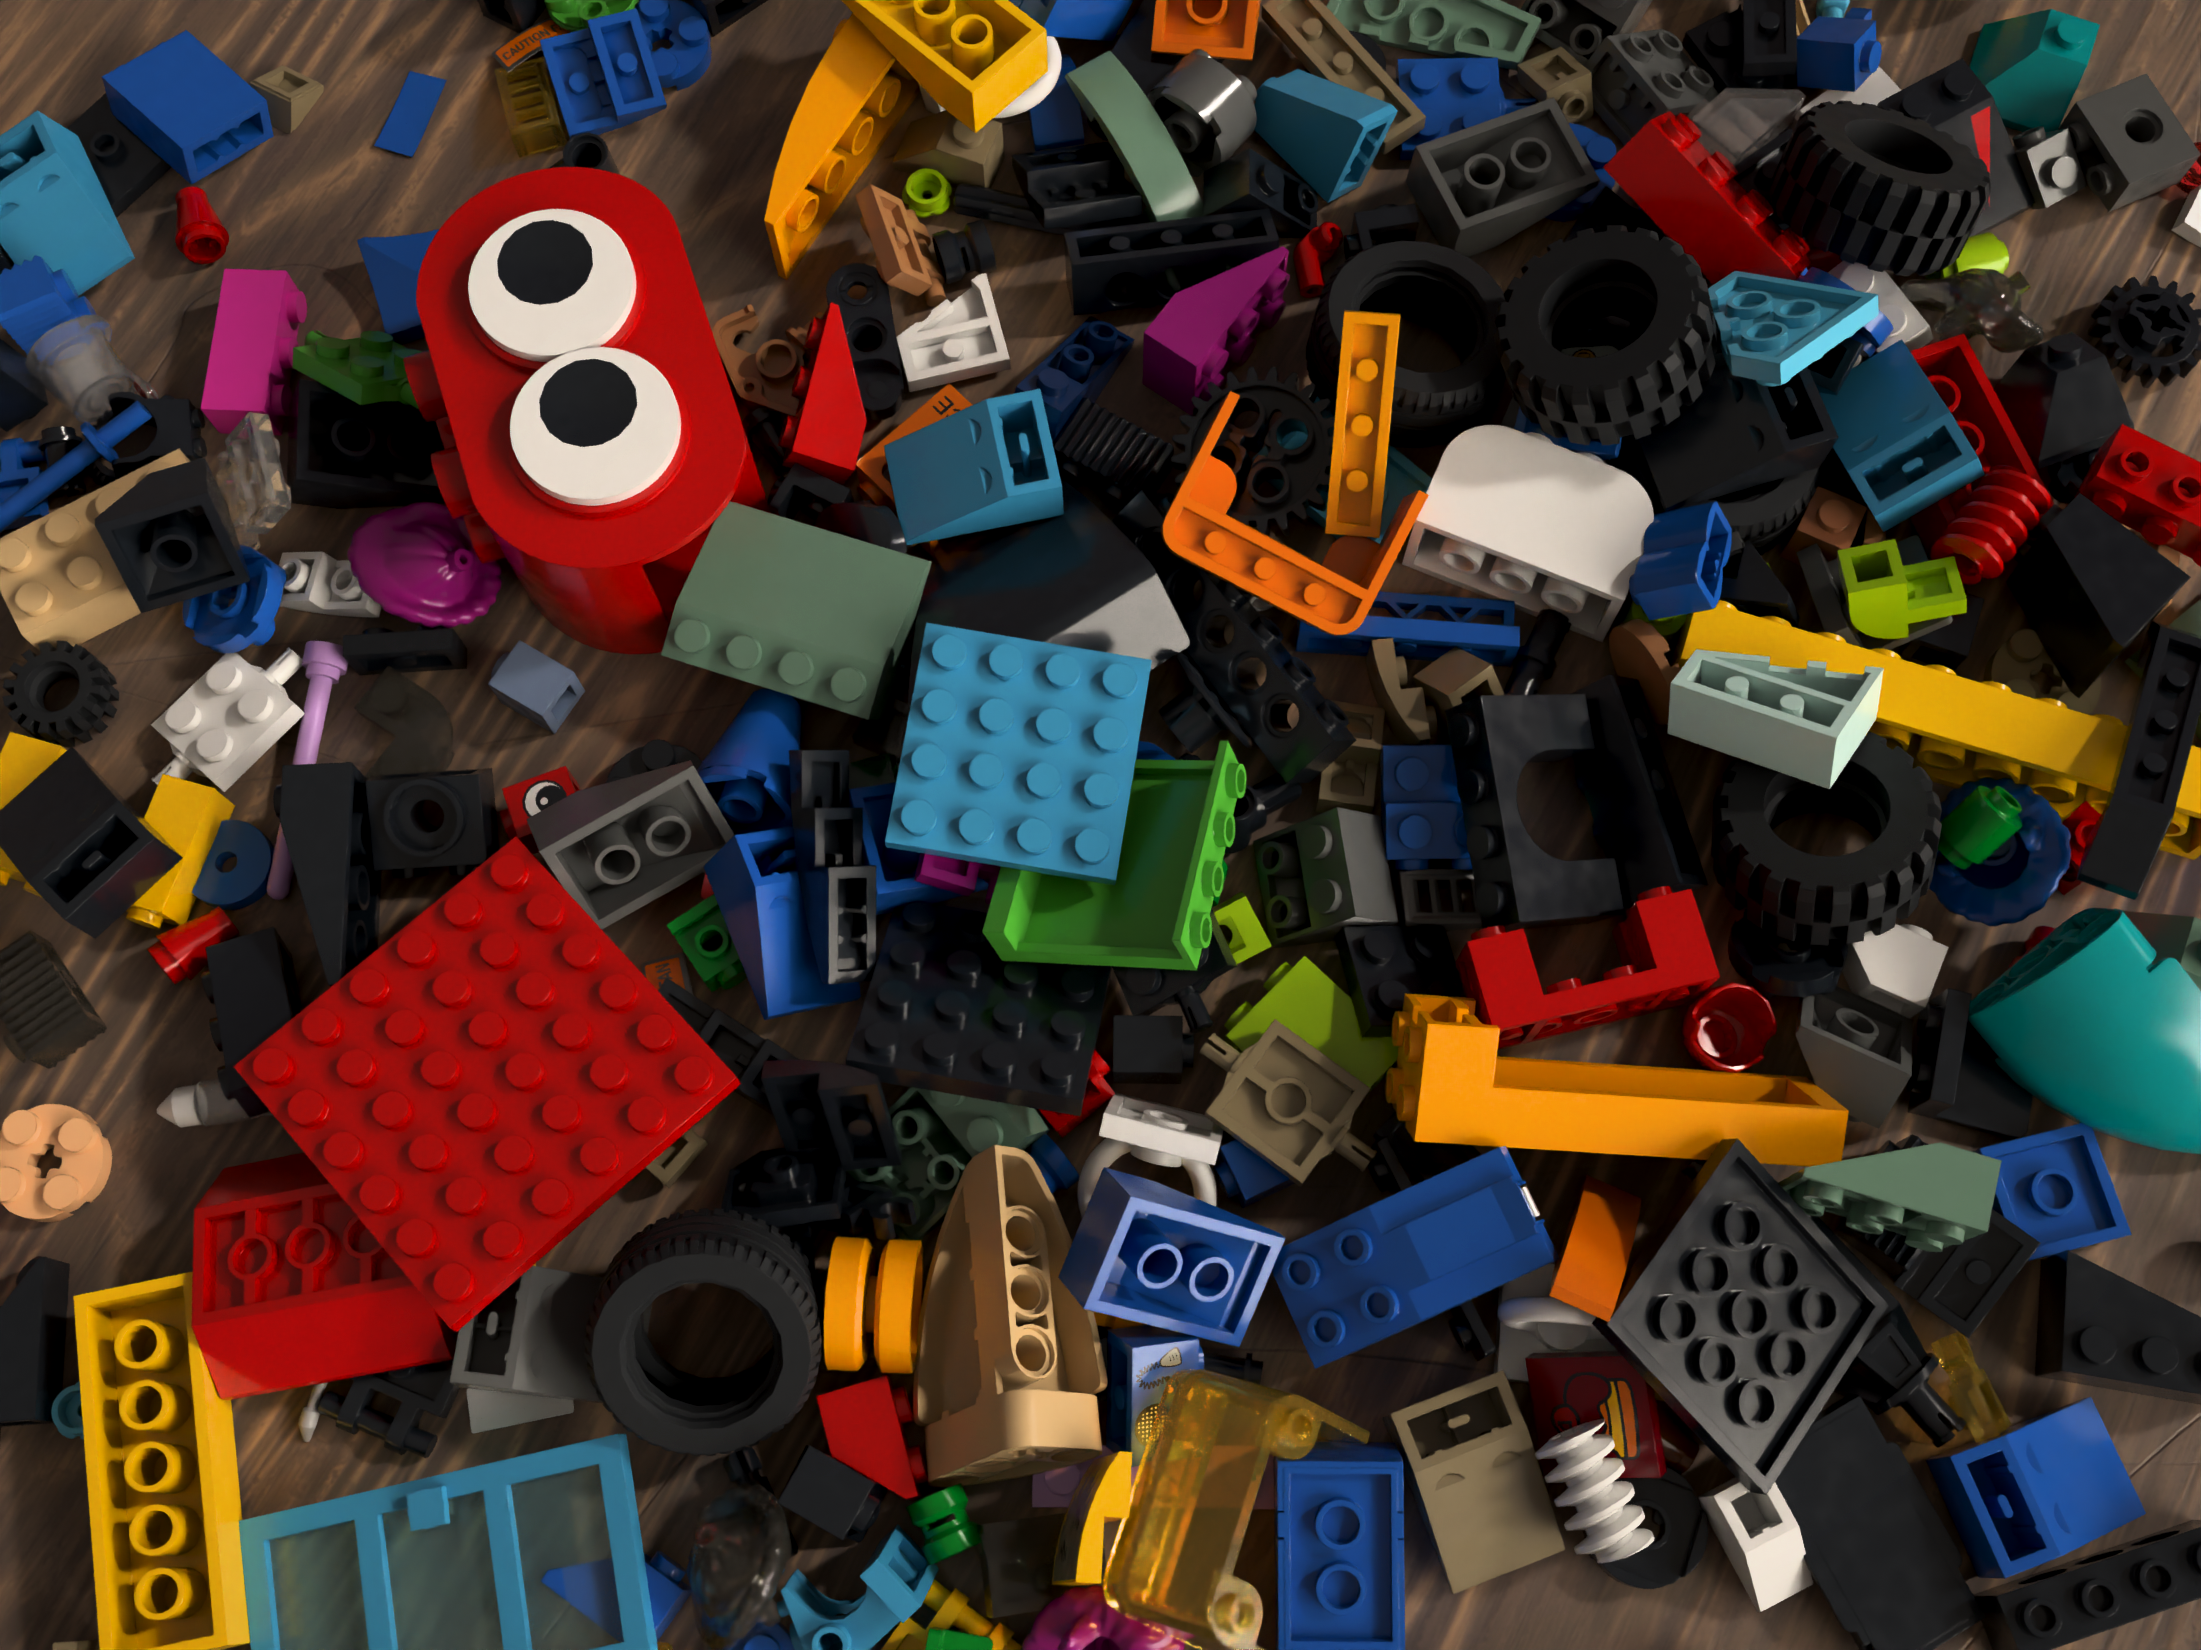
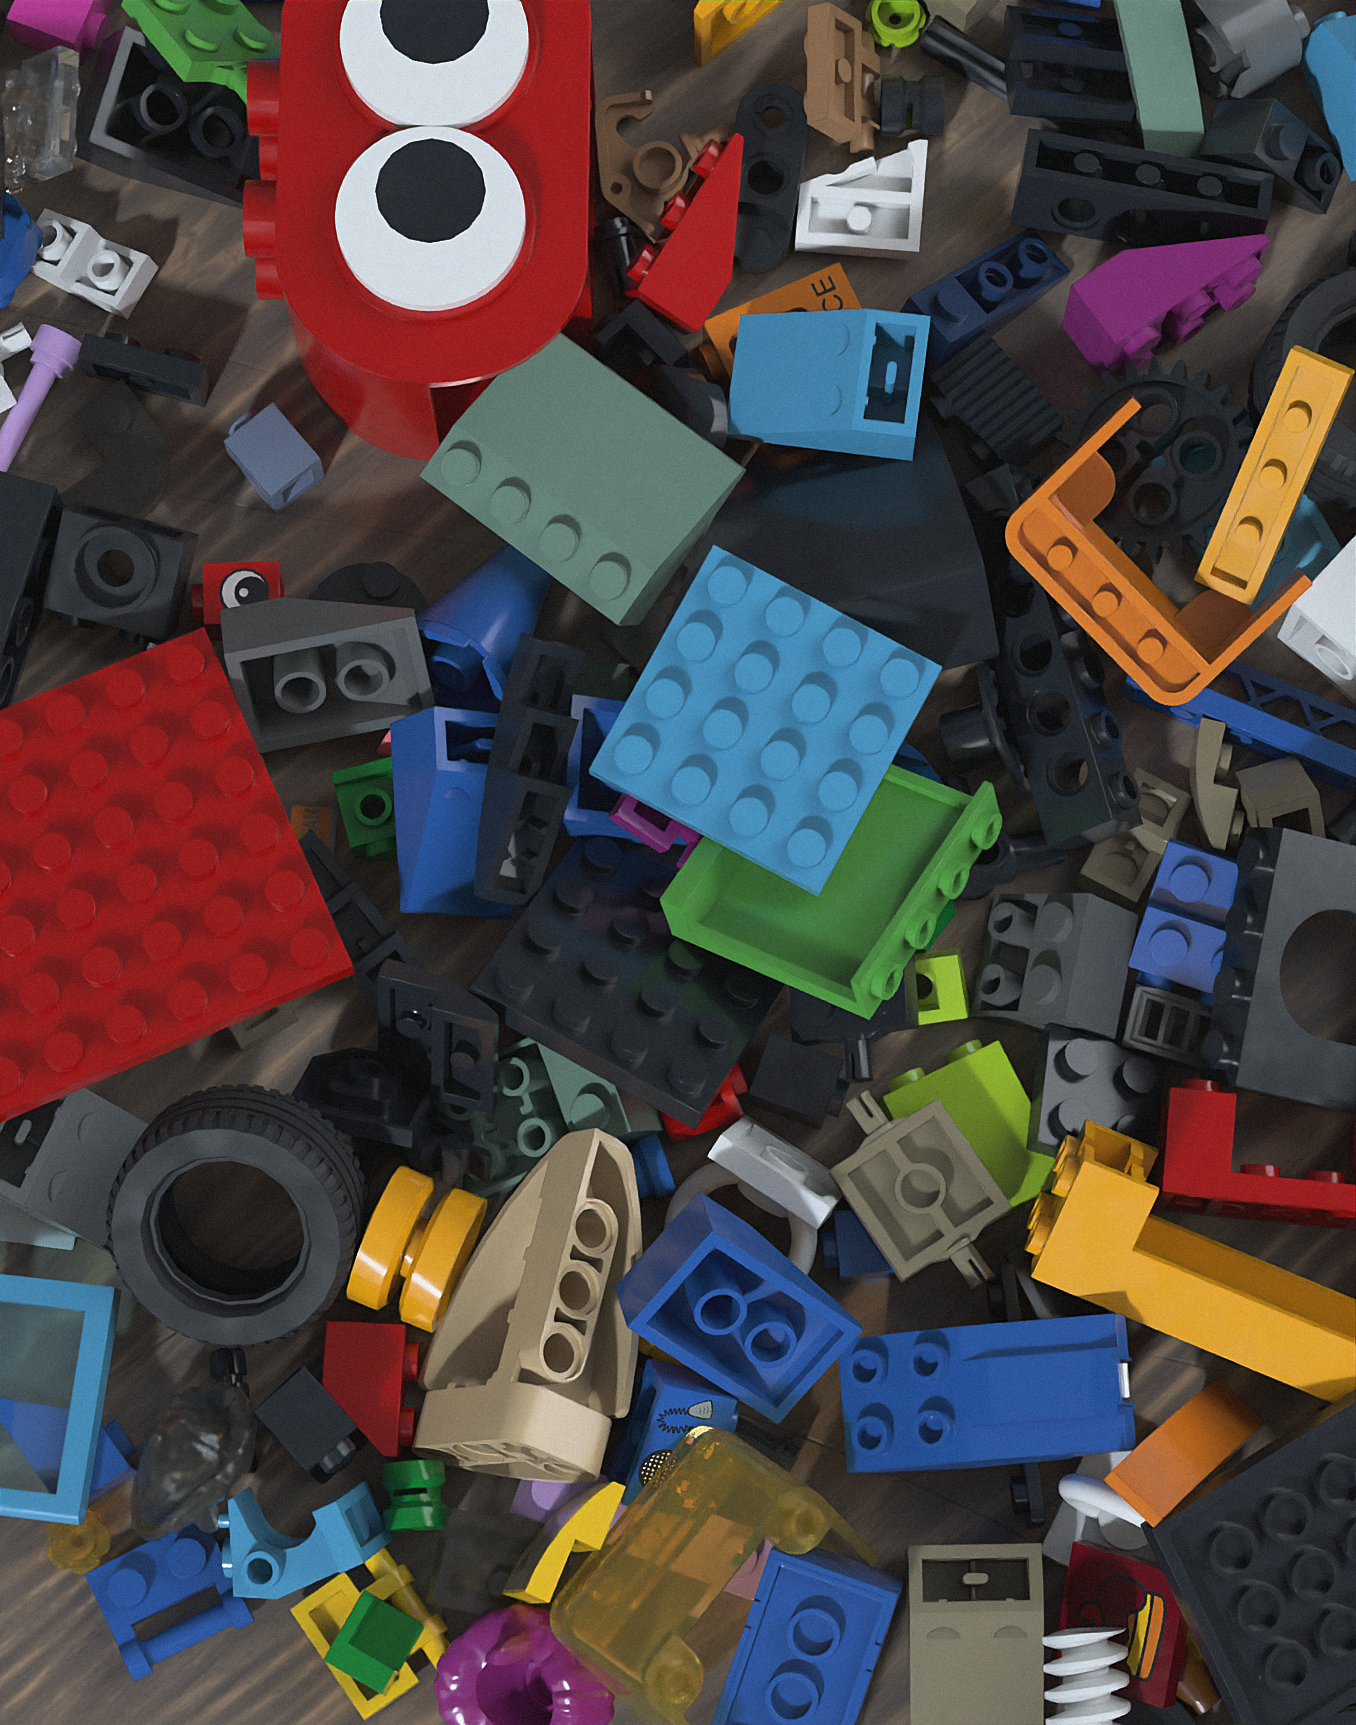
camera: 20 degrees right, 5 degrees up
(423, 566) = (193, 281): magenta piece -> none
(1312, 255) = (1310, 238): red arm -> none

